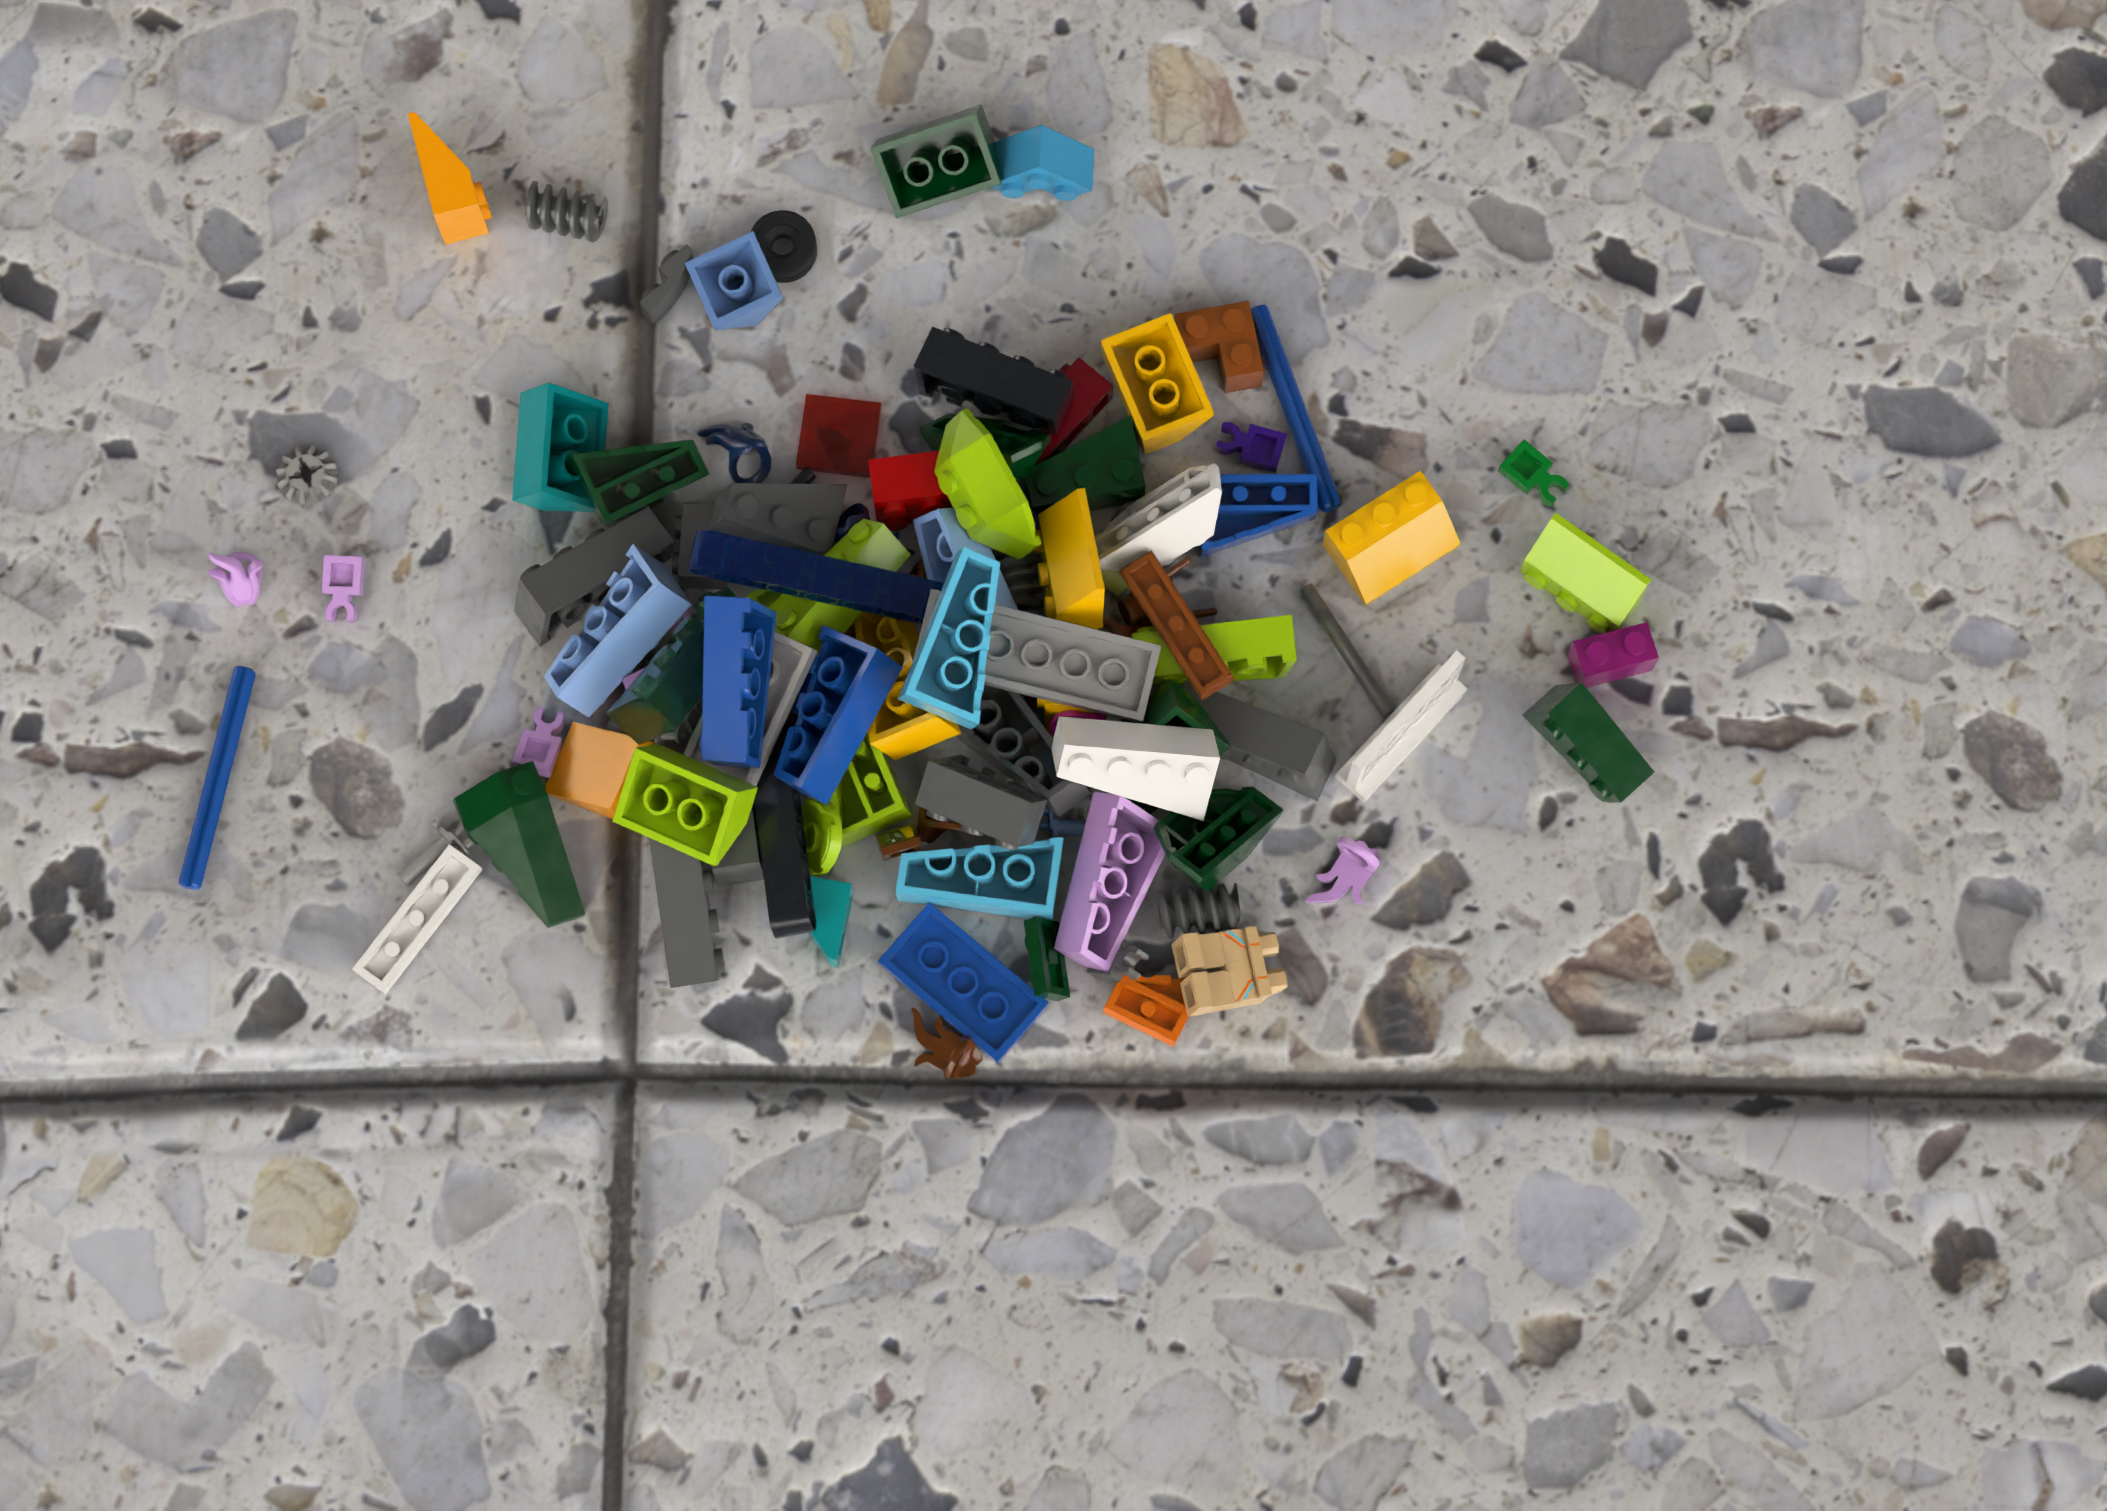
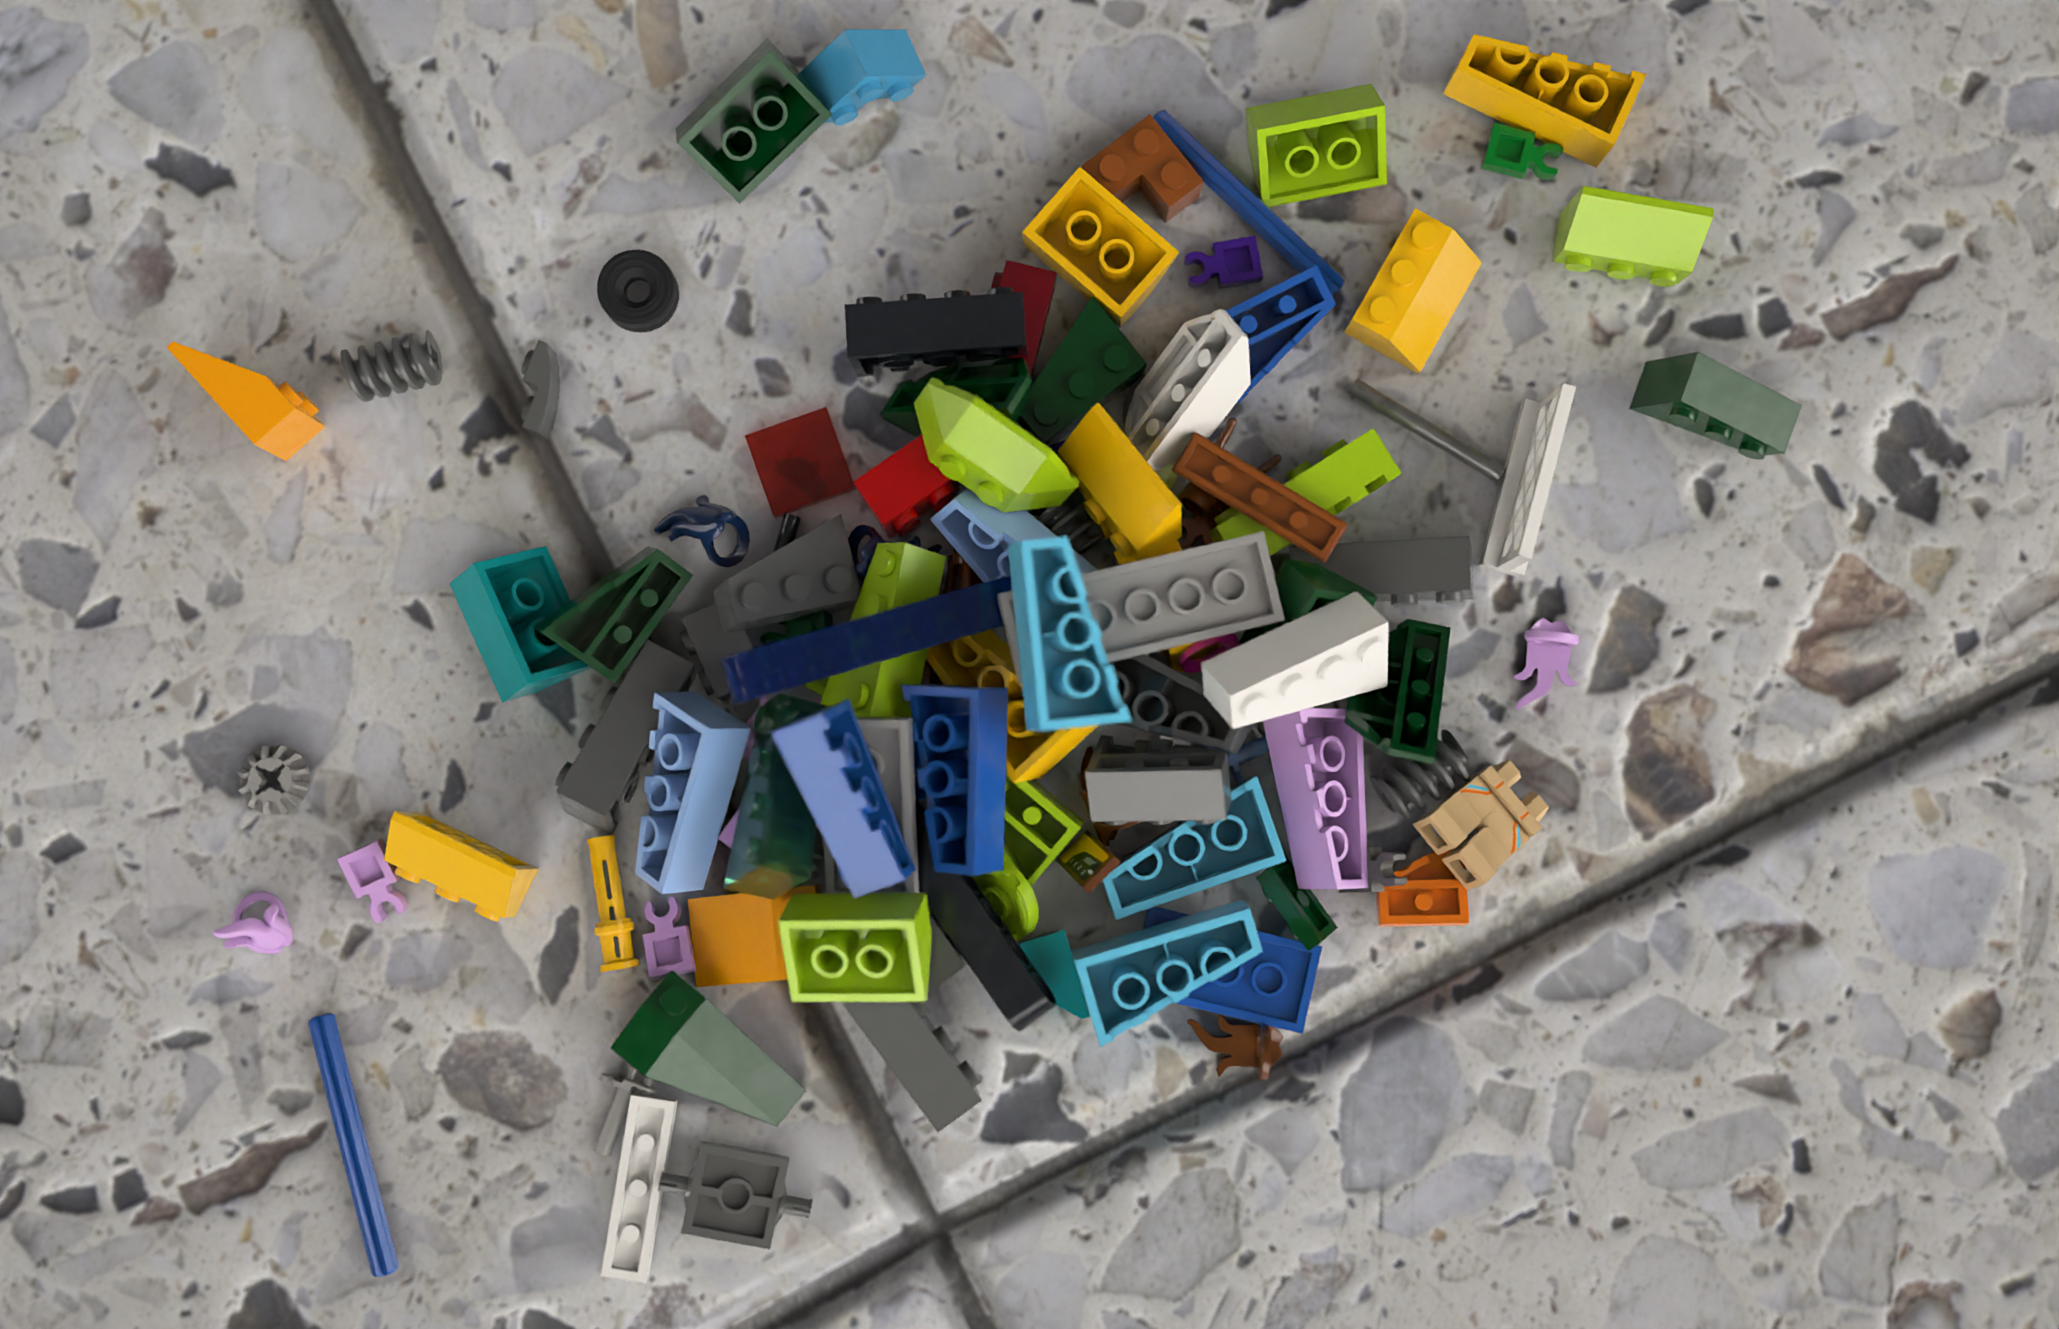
camera: 30 degrees left, 10 degrees up
(412, 604) = (457, 864): none -> yellow slope
(488, 960) = (735, 1195): none -> dark grey plate
(499, 710) = (603, 850): none -> yellow pin
(735, 283) = (611, 356): medium blue slope -> none
(902, 942) = (1161, 965): none -> medium azure wedge
(1373, 390) = (1318, 145): none -> lime slope
(1575, 437) = (1546, 95): none -> yellow wedge
(1613, 655) = (1696, 304): magenta brick -> none

